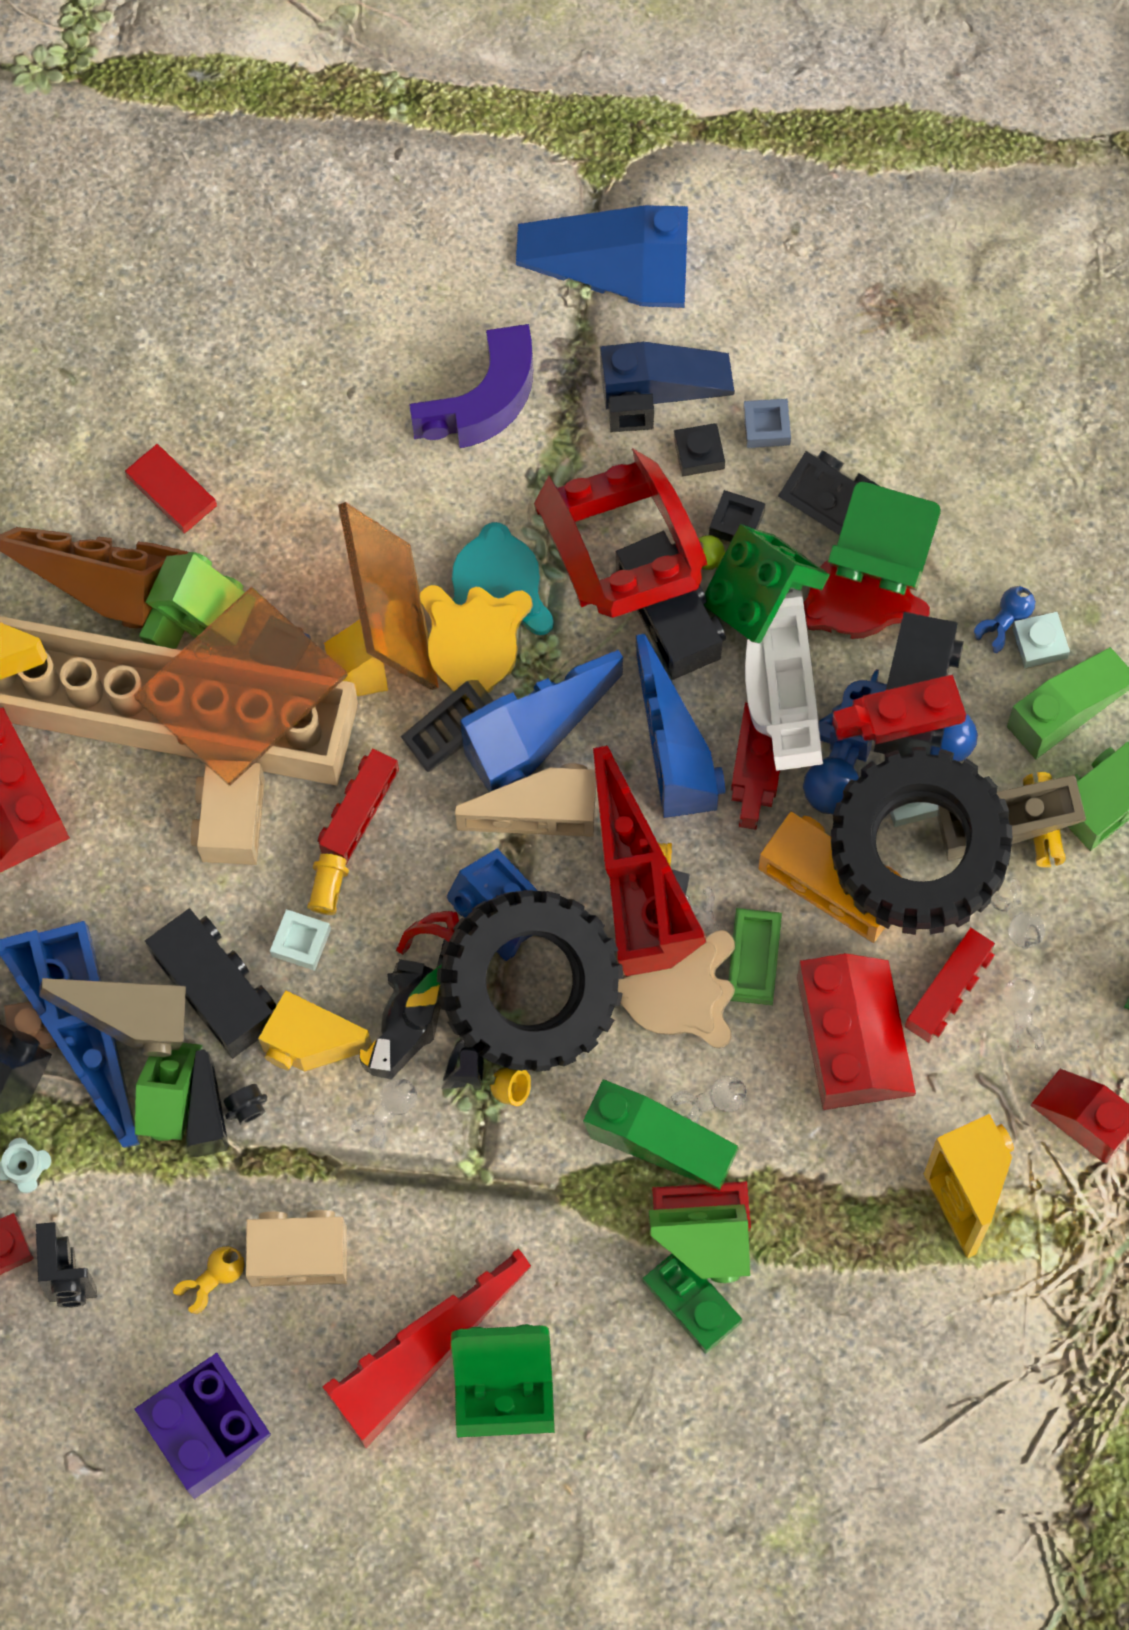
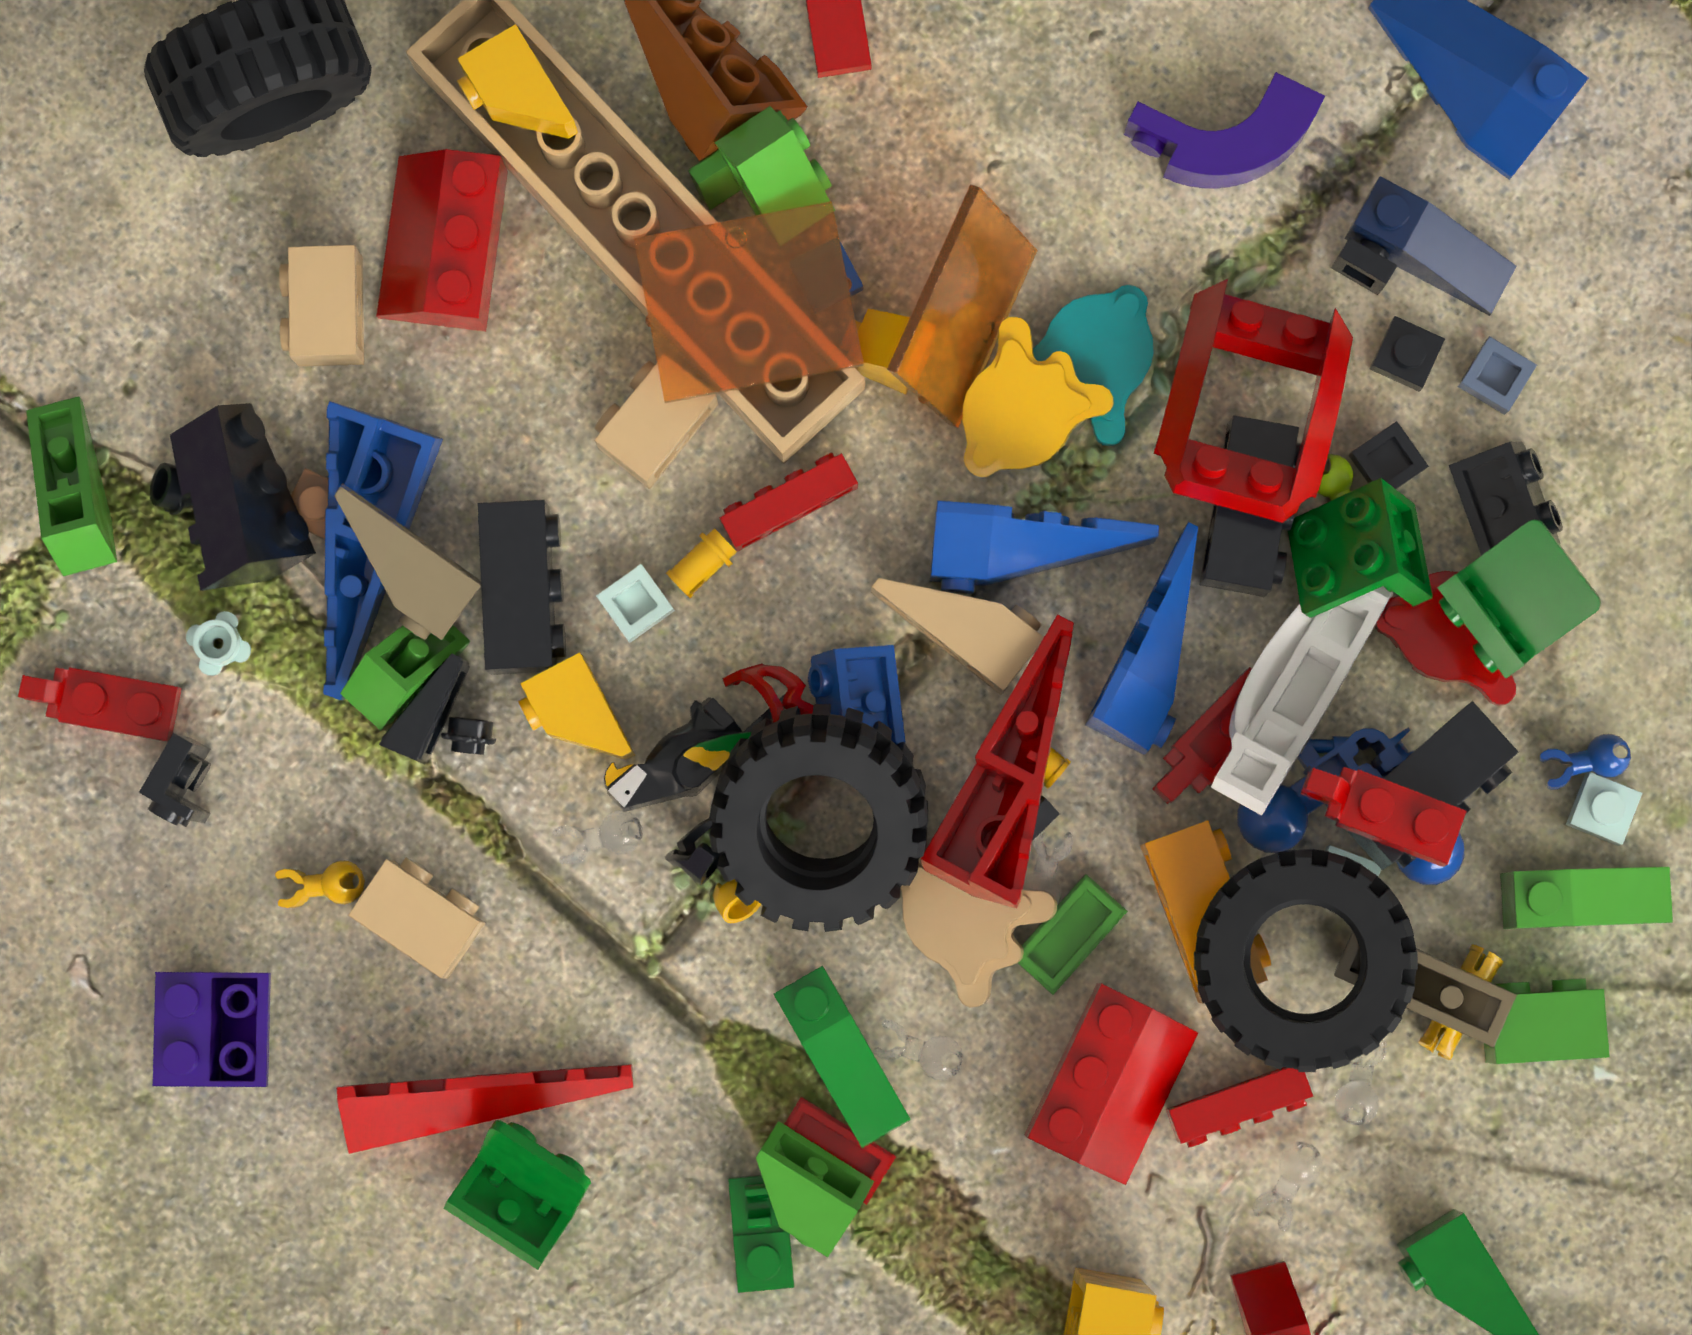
camera: 35 degrees right, 15 degrees up
(470, 689) = (974, 475): black slope -> none

